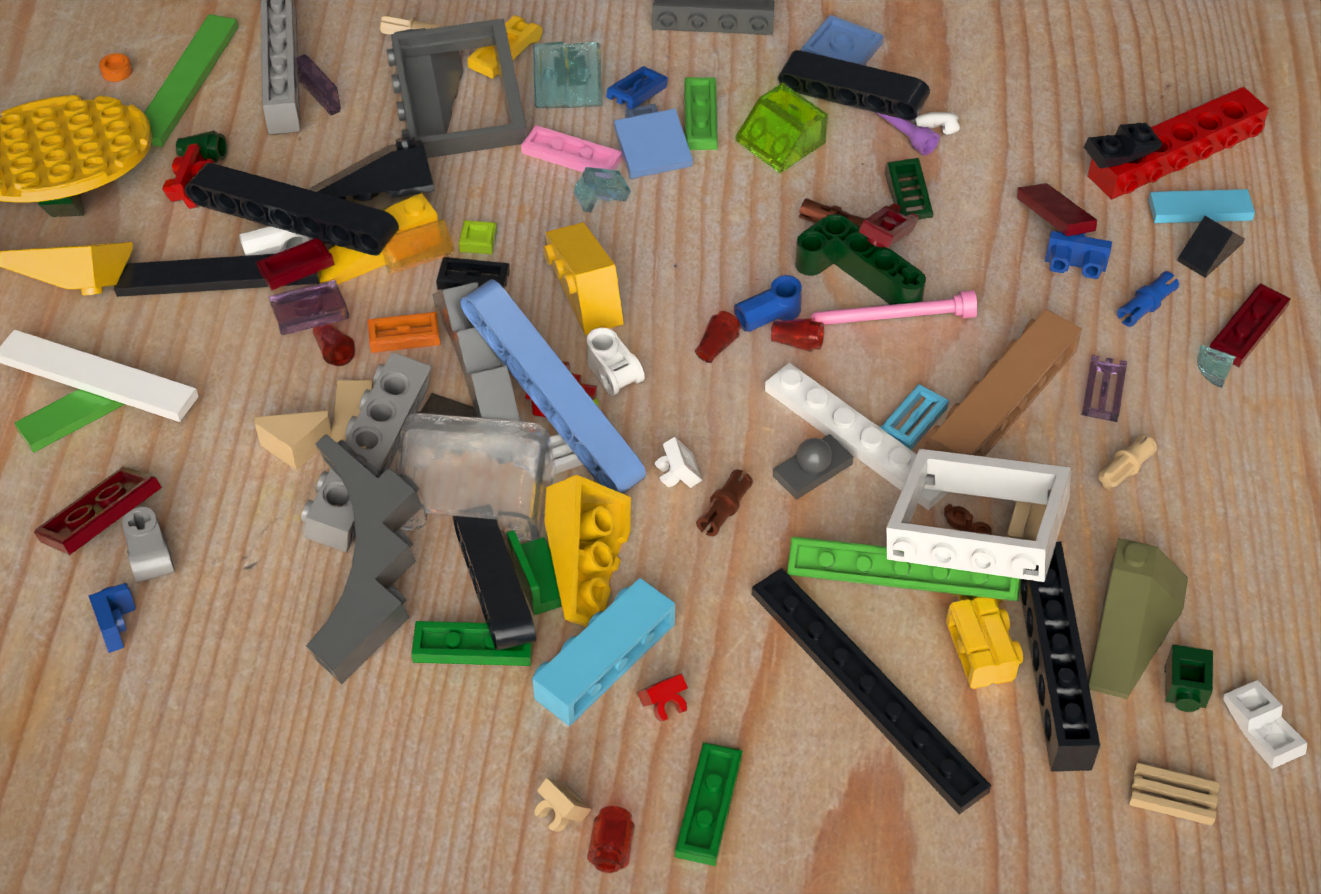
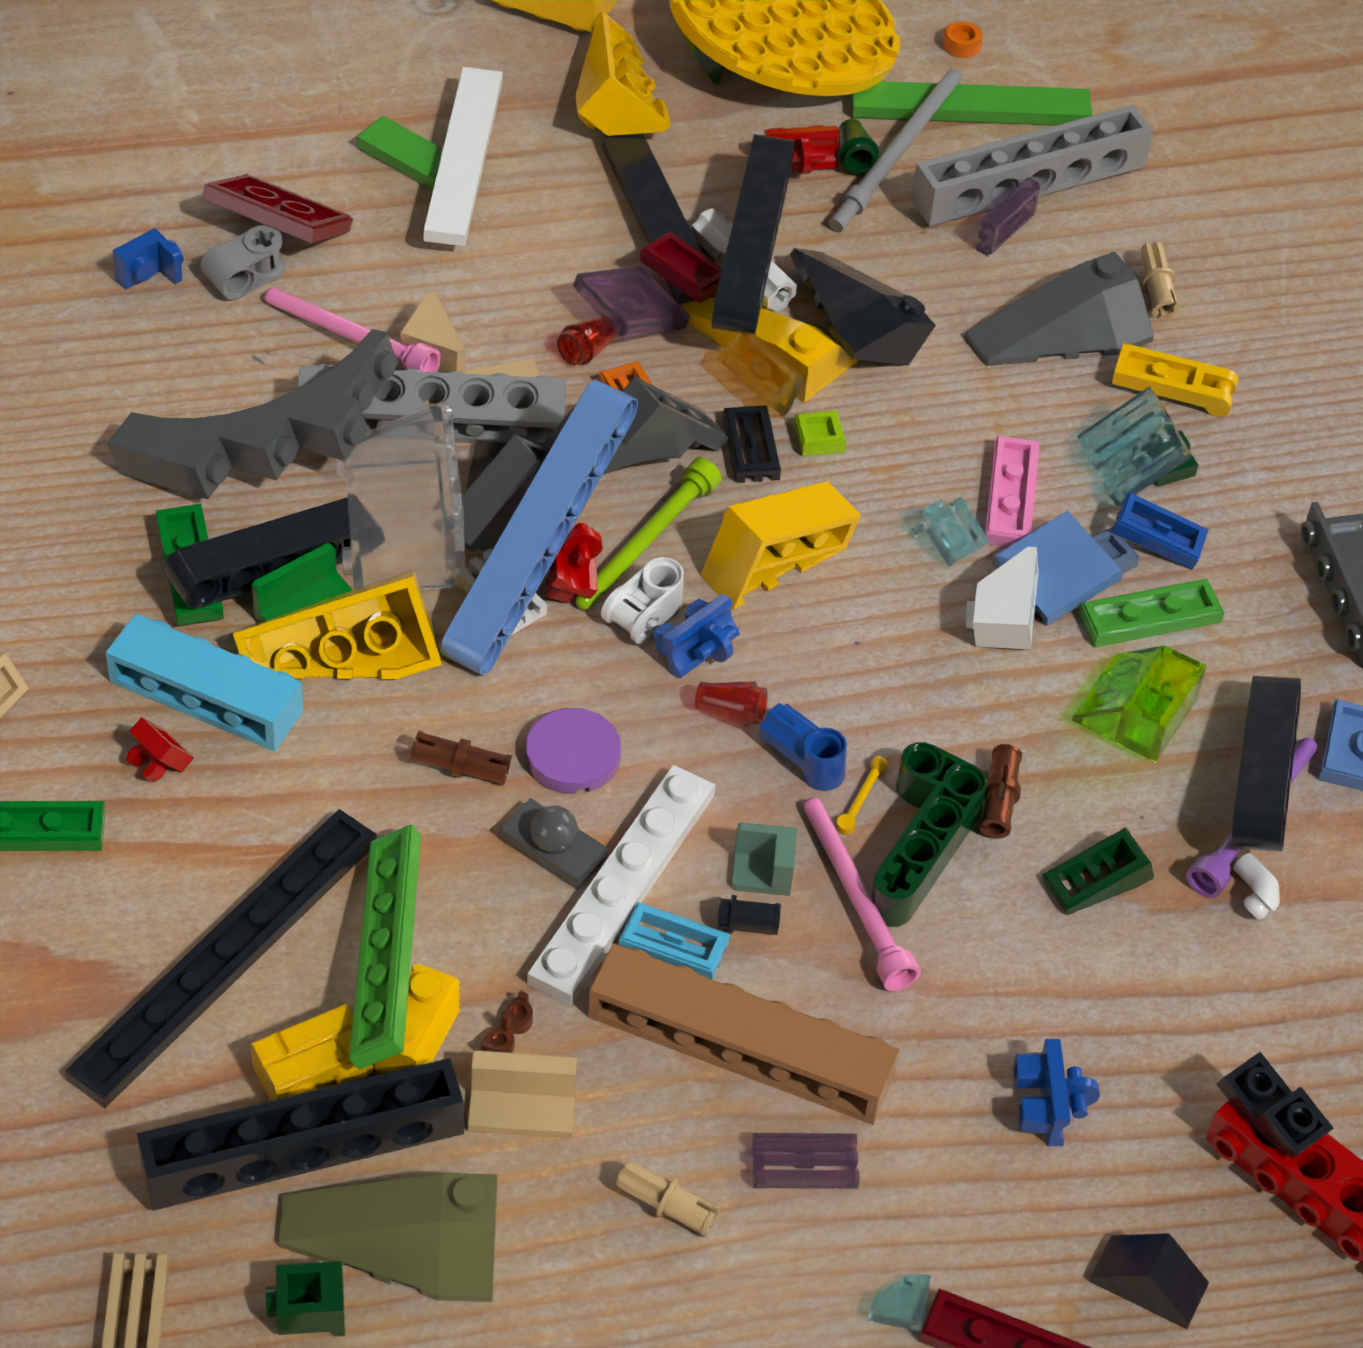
camera: 70 degrees right, 0 degrees up
(253, 158) = (858, 195): none -> light grey bar
(254, 491) = (411, 357): none -> bright pink piece
(454, 39) = (1077, 384): dark grey window -> none
(658, 352) = (702, 635): none -> blue hips
(680, 464) = (506, 700): white tile -> none
(683, 170) = (1006, 604): none -> white slope
(732, 437) = (573, 750): none -> medium lavender tile
(799, 333) = (770, 790): clear red cone -> none
(831, 304) = (846, 822): none -> yellow hinge
(863, 349) = (764, 859): none -> sand green panel
(888, 226) = (989, 841): dark red hinge -> none
(903, 376) = (748, 915): none -> black pin
(983, 478) = (449, 1058): white window -> none
(1057, 209) = (1119, 1047): dark red tile -> none
(1148, 298) = (997, 1196): blue pin -> none
(1194, 205) = (1234, 1258): medium azure tile -> none

